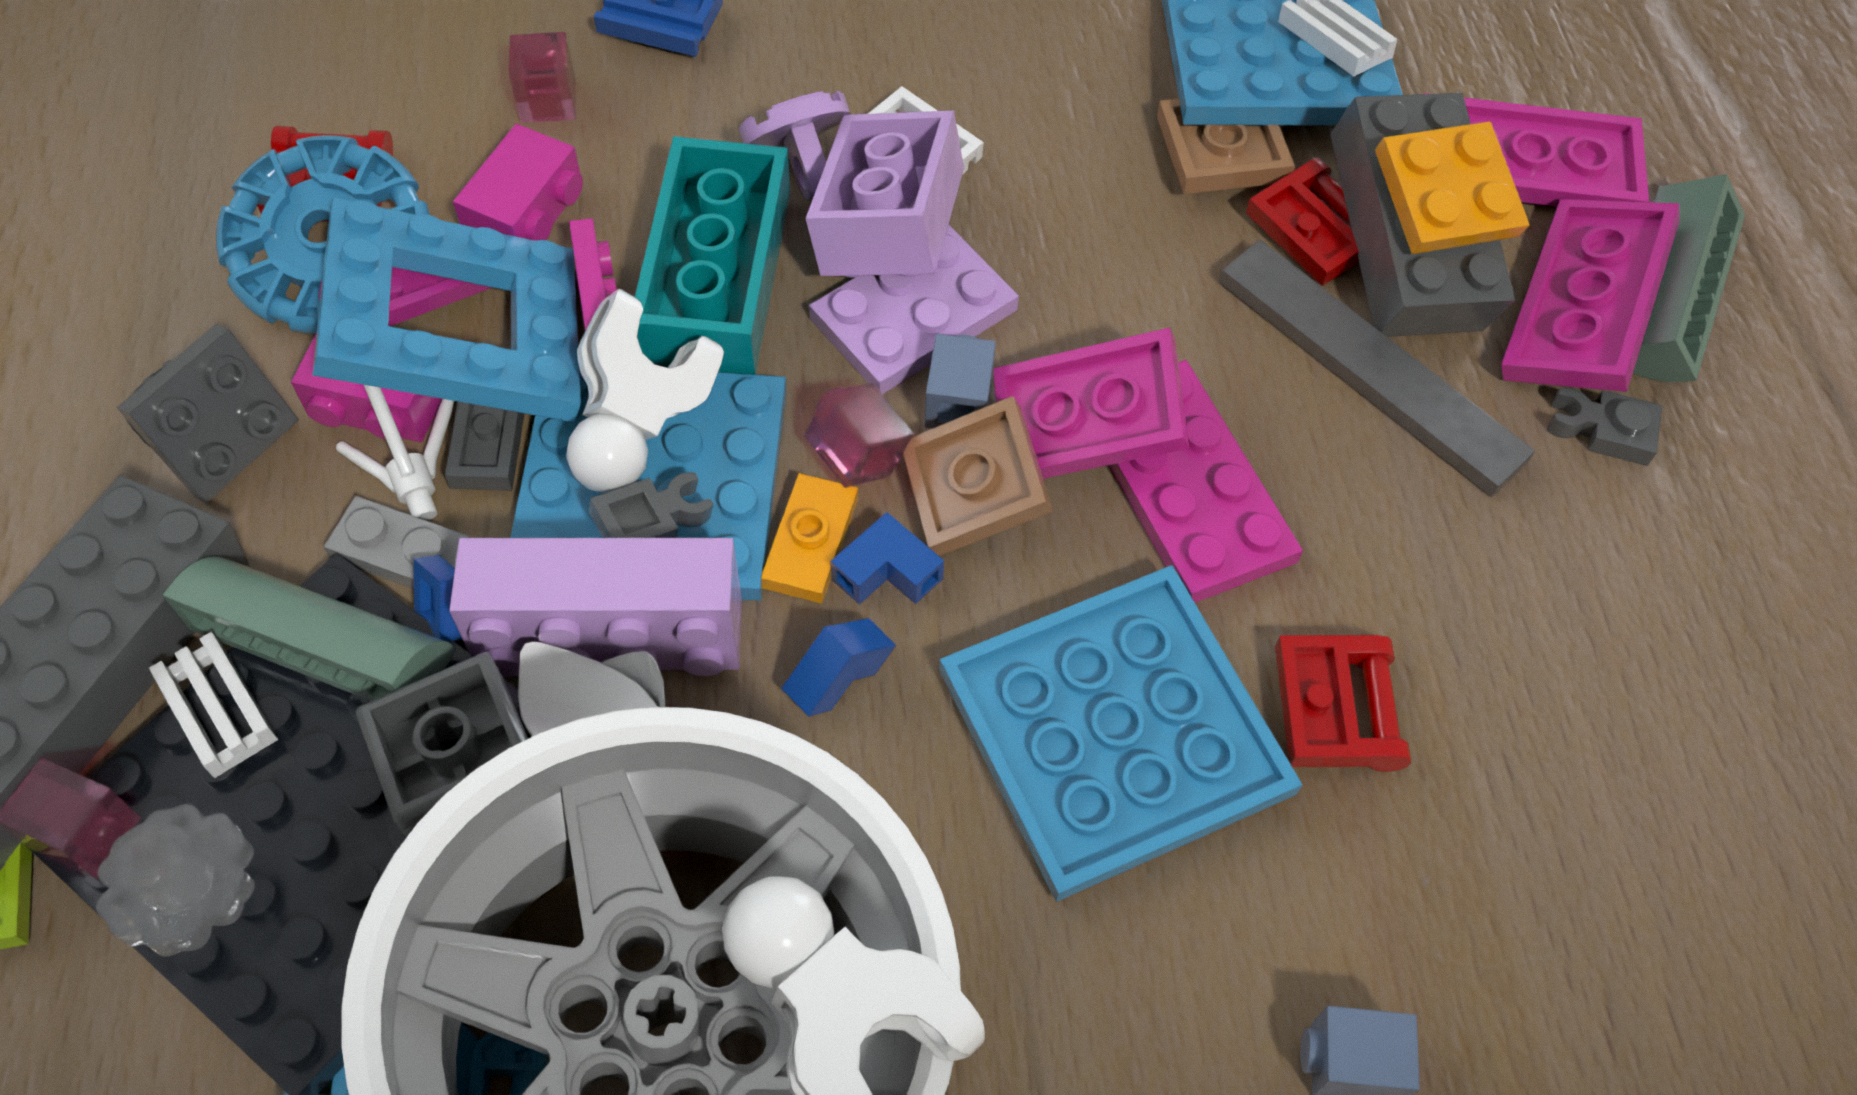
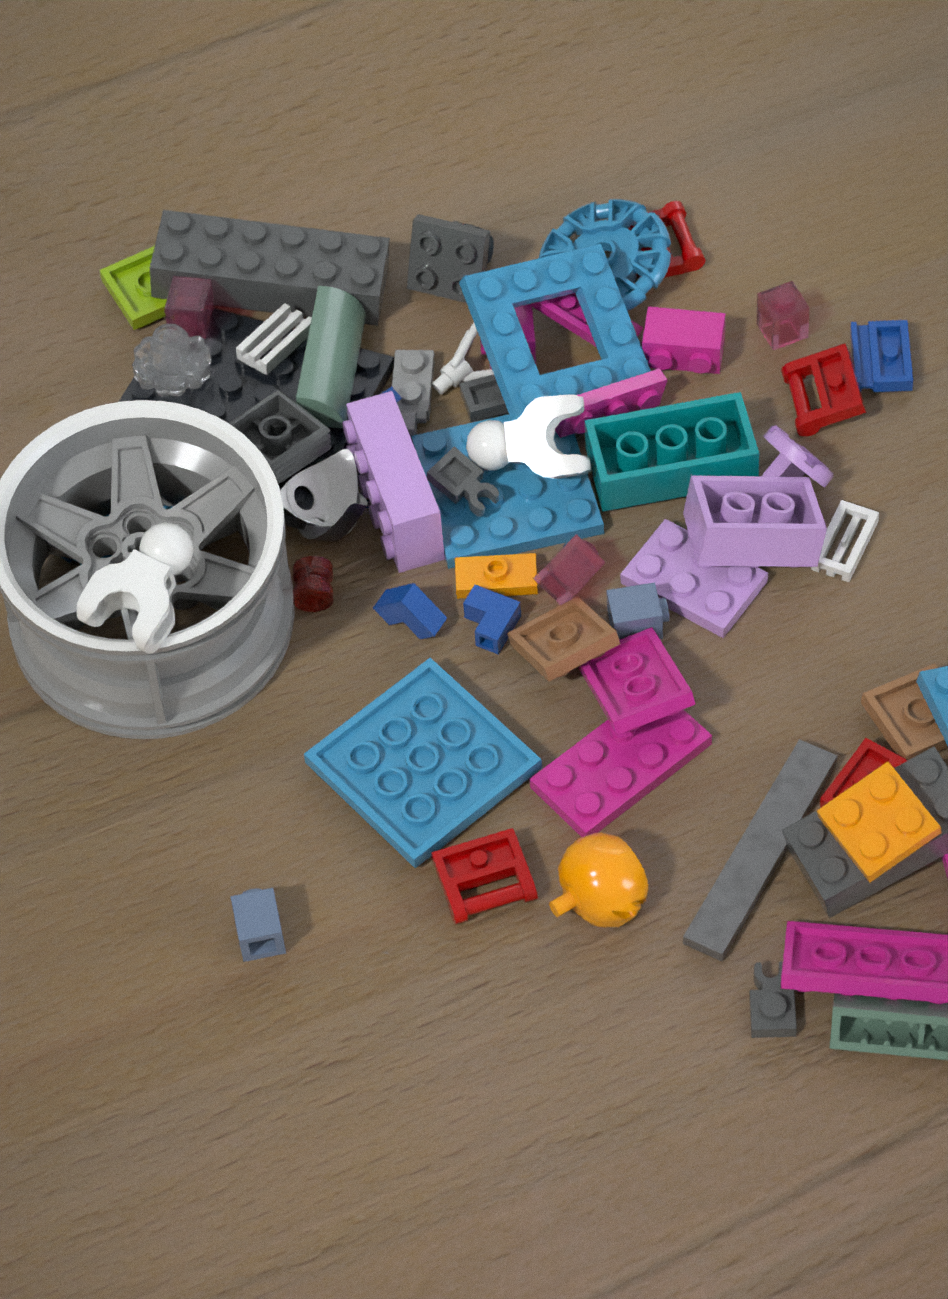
camera: 80 degrees right, 5 degrees down
(689, 60) = (835, 385): none -> red plate
(1406, 547) = (601, 881): none -> light orange piece

